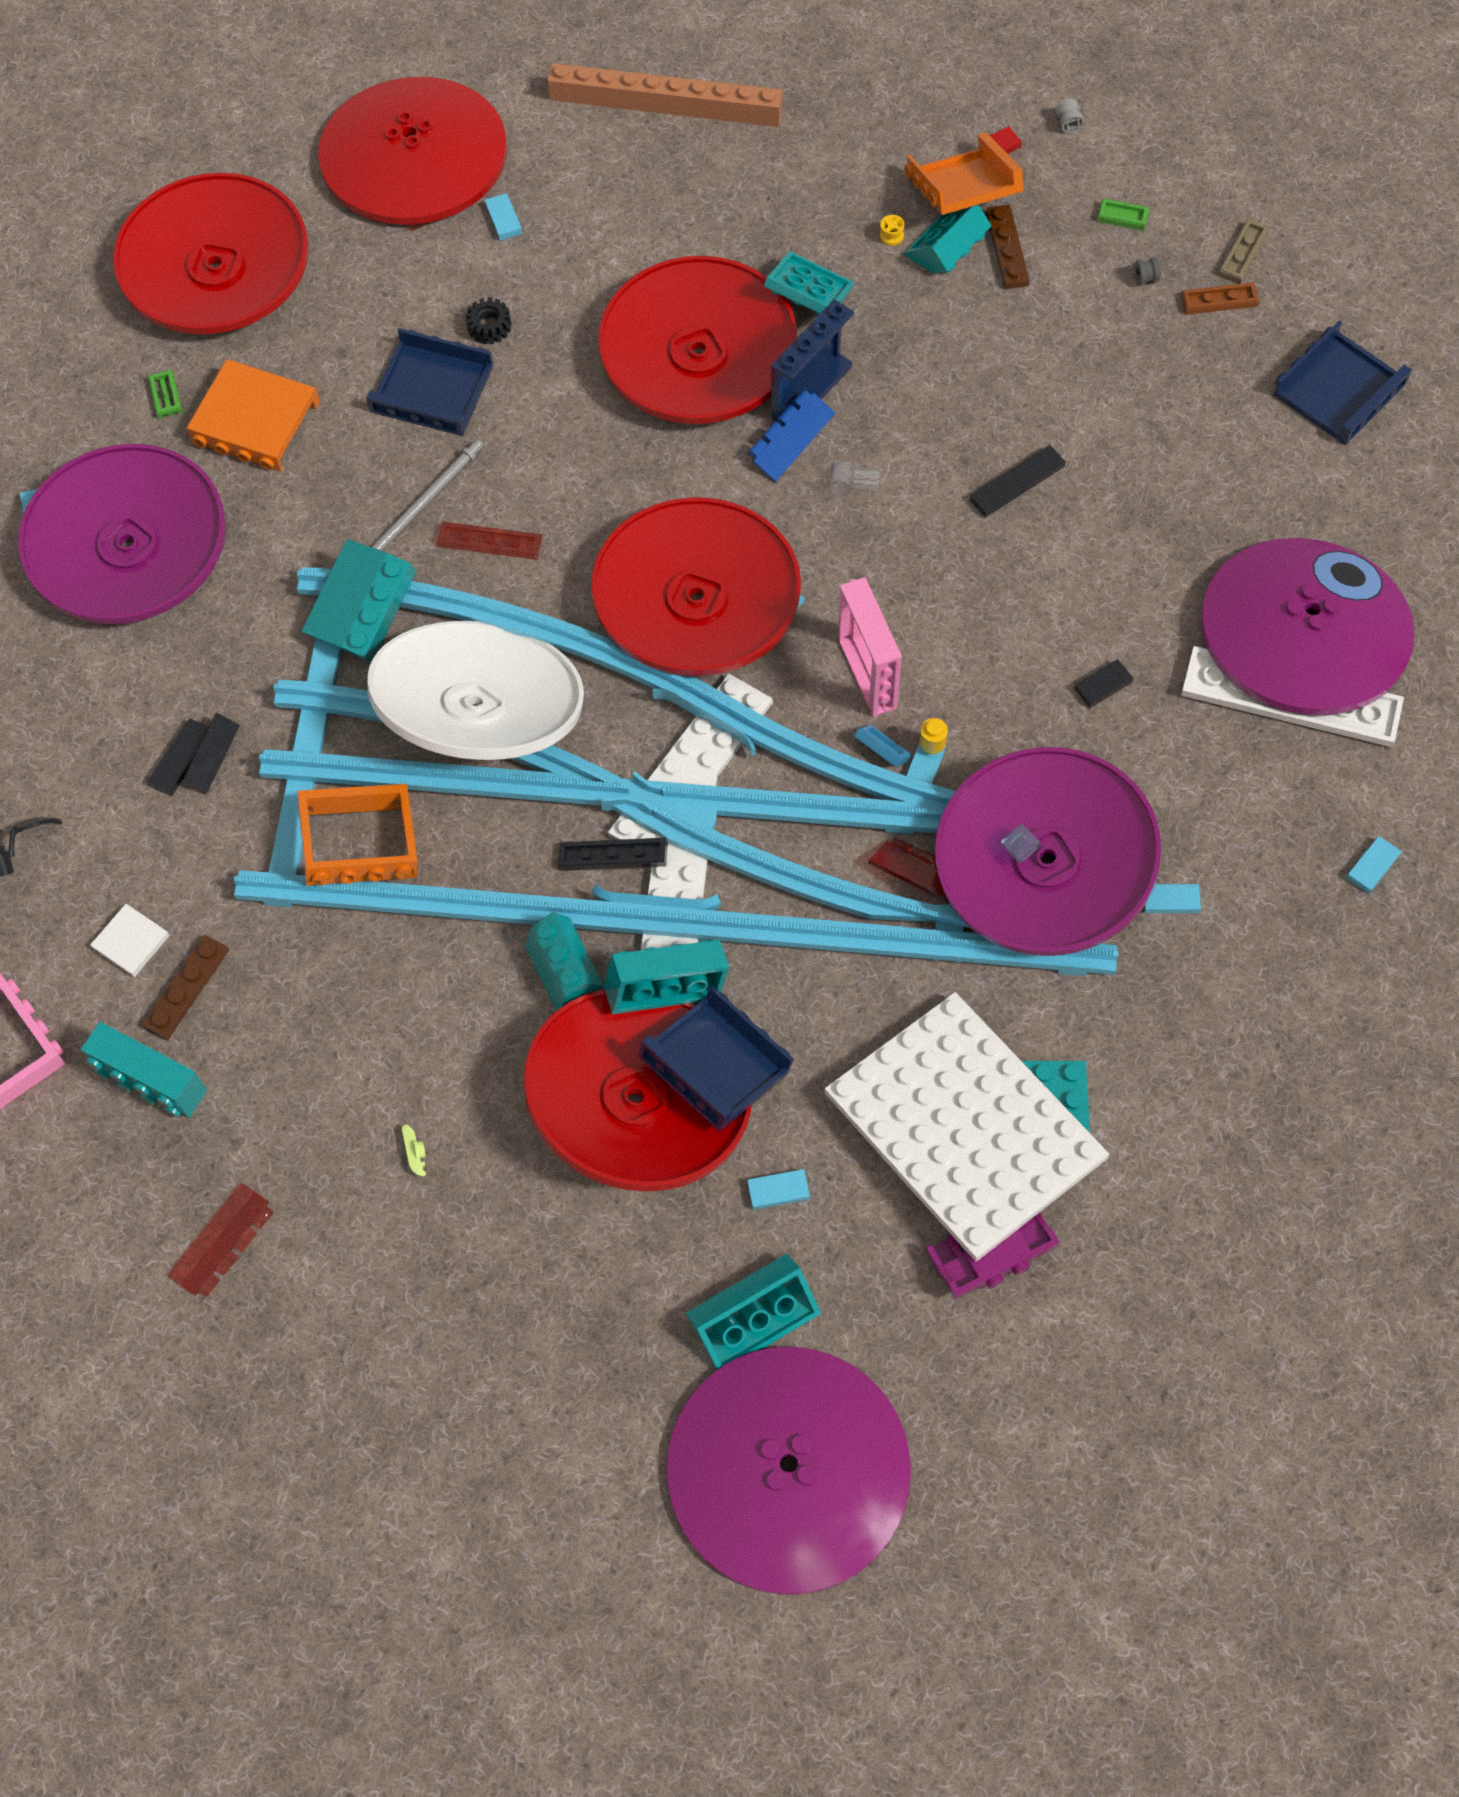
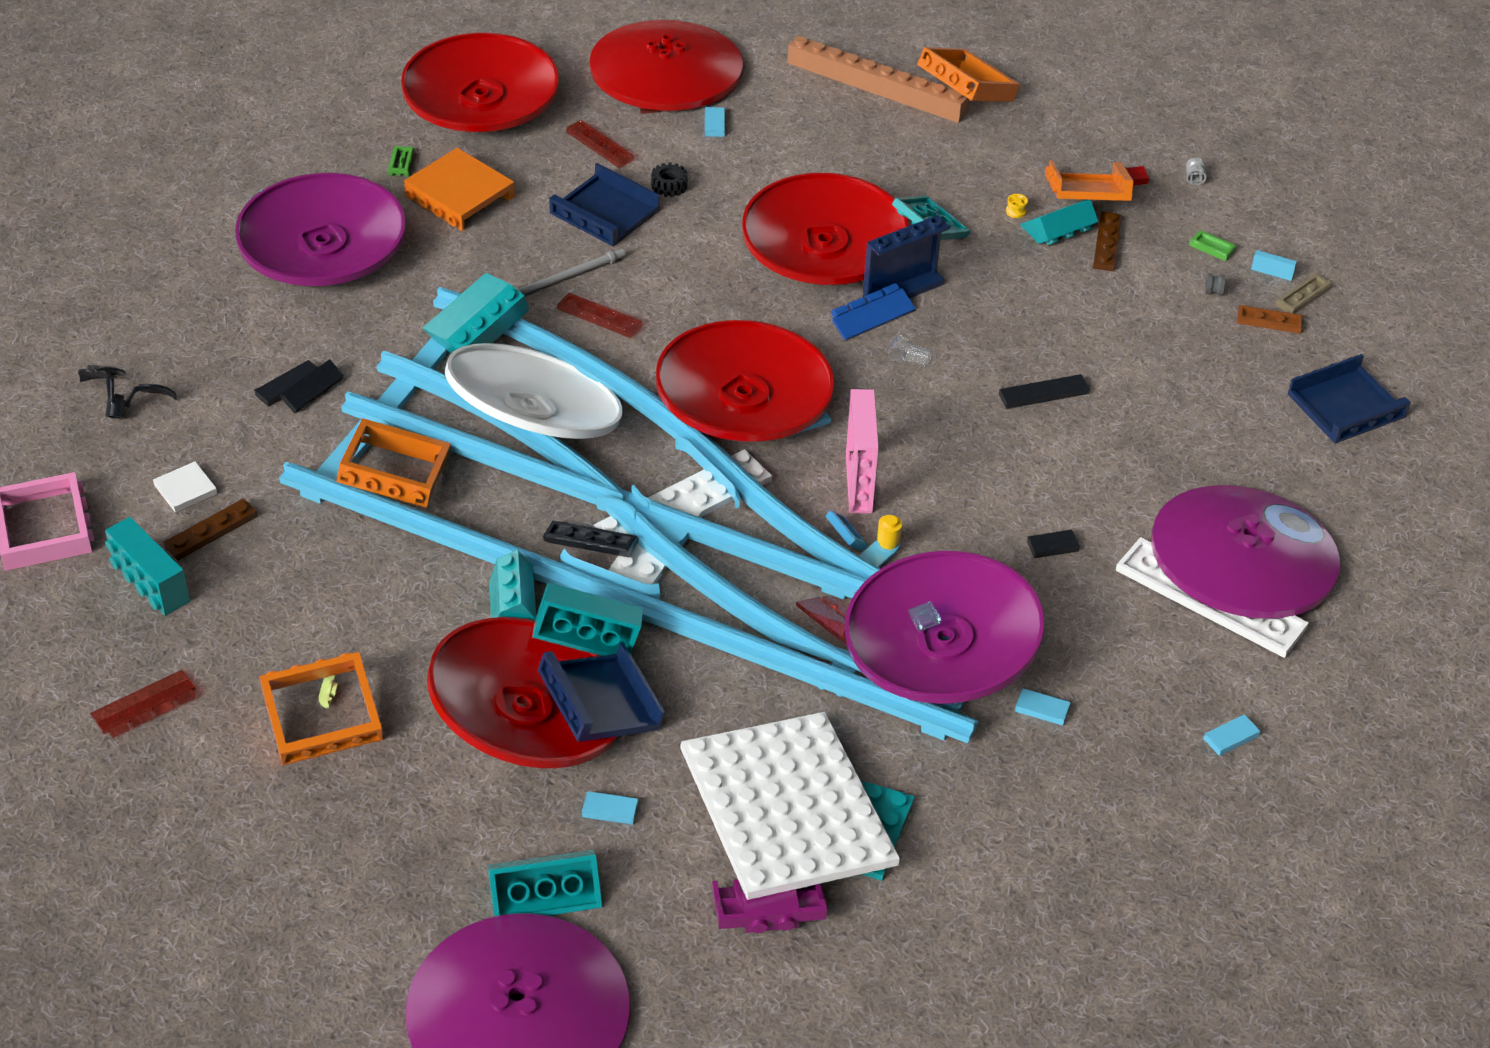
camera: 15 degrees right, 20 degrees down
(385, 292) = (600, 143): none -> clear red tile
(450, 1220) = (328, 742): none -> orange window
(728, 59) = (955, 71): none -> orange window
(1200, 223) = (1274, 265): none -> medium azure tile

